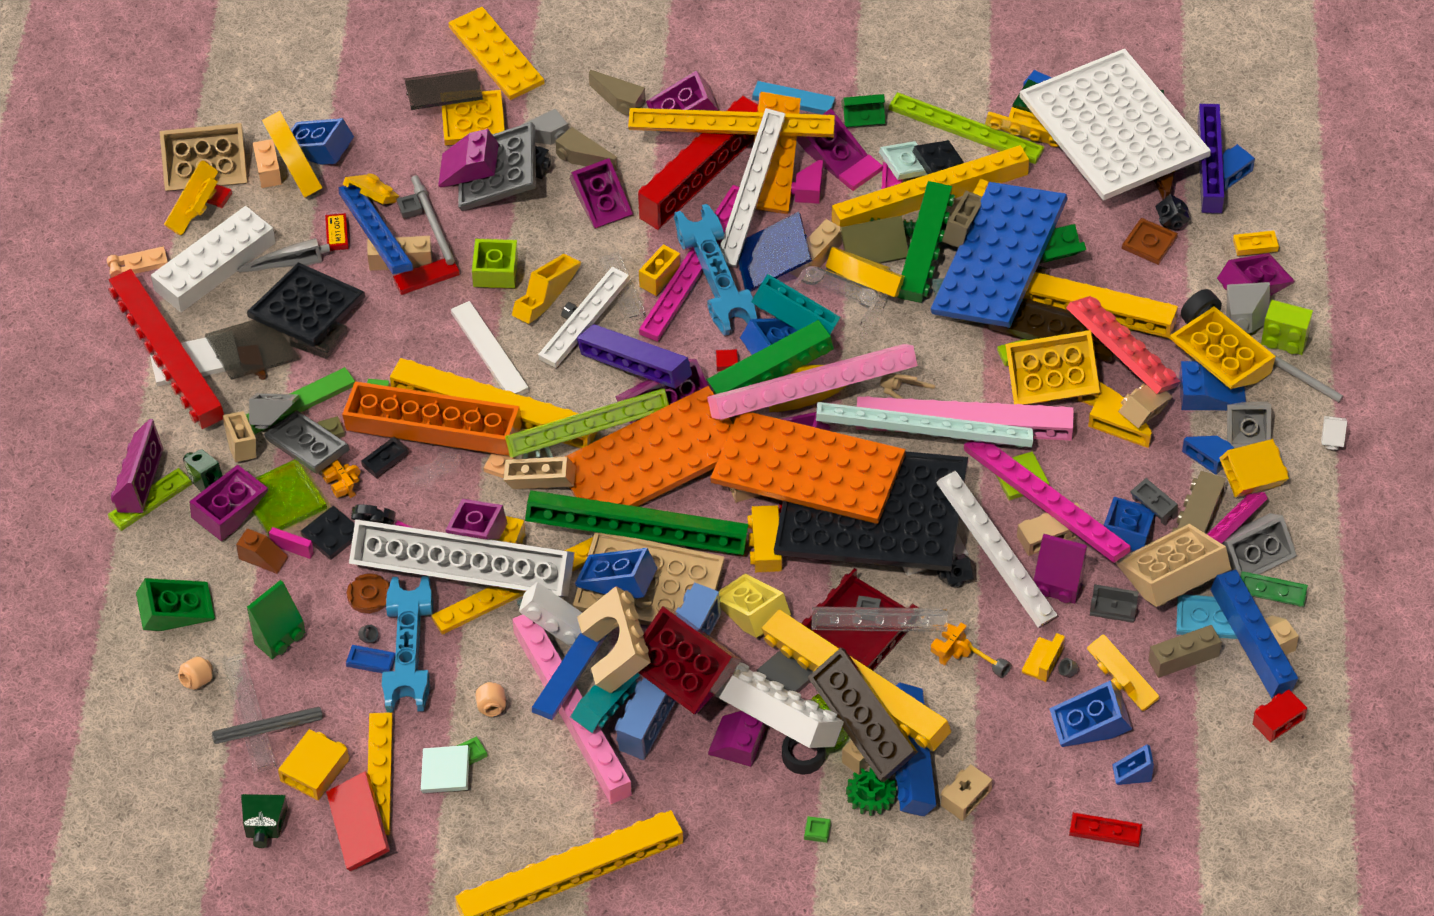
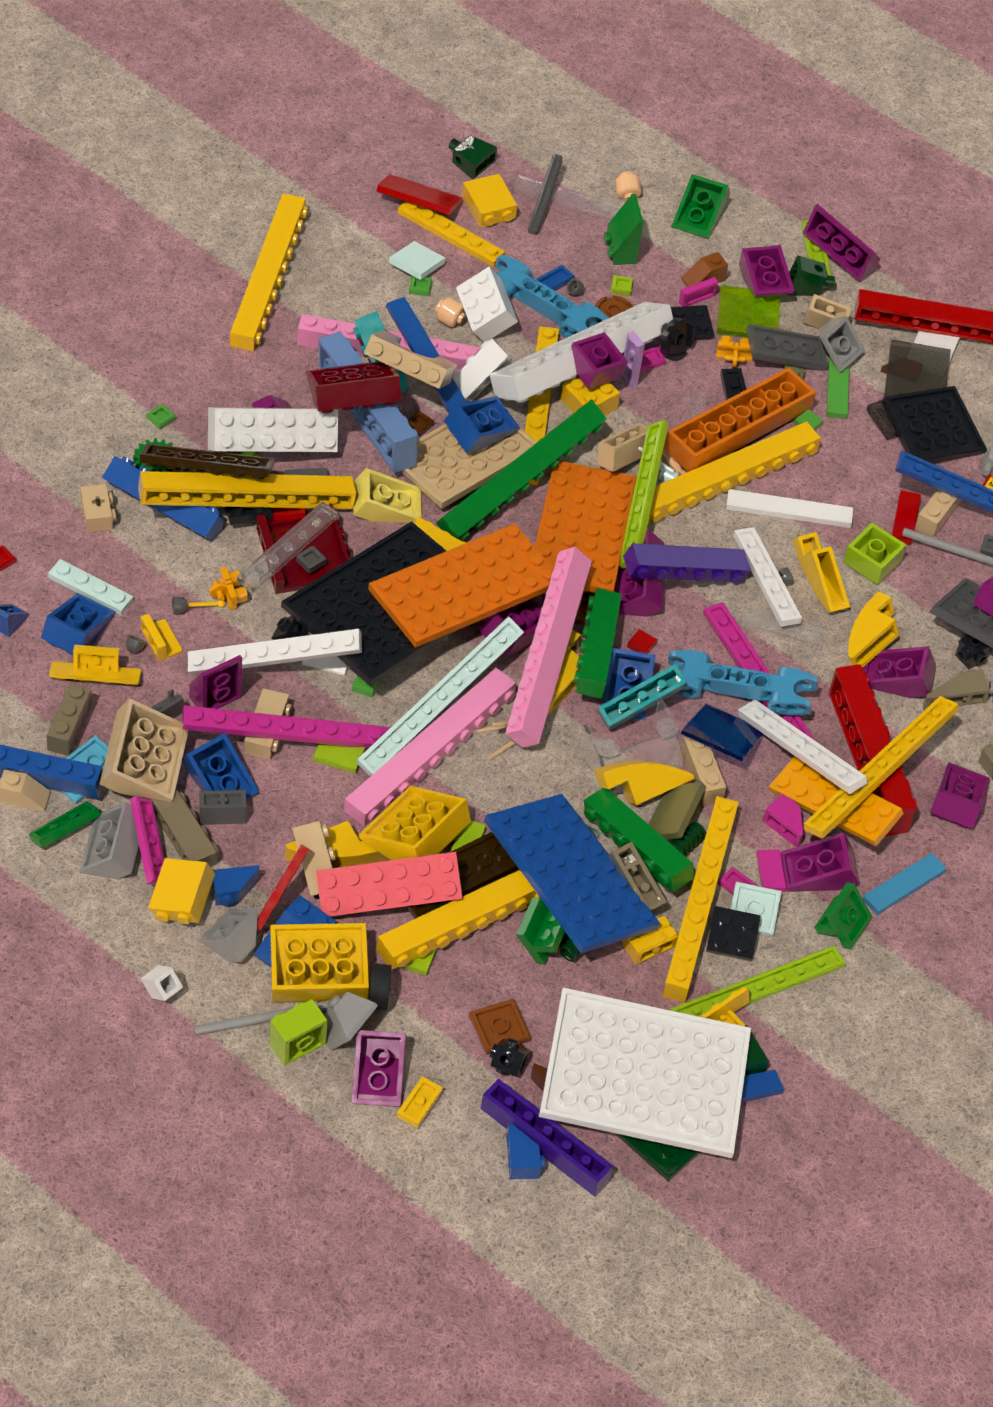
camera: 120 degrees right, 0 degrees up
(329, 607) = (621, 285): none -> lime tile
(439, 512) = (633, 353): none -> lavender tile
(463, 668) = (486, 304): none -> white brick
(580, 225) = (872, 630): none -> yellow slope
(659, 270) = (772, 648): yellow brick -> none
(1044, 742) = (90, 586): none -> light aqua plate
(1190, 404) = (281, 886): none -> red tile

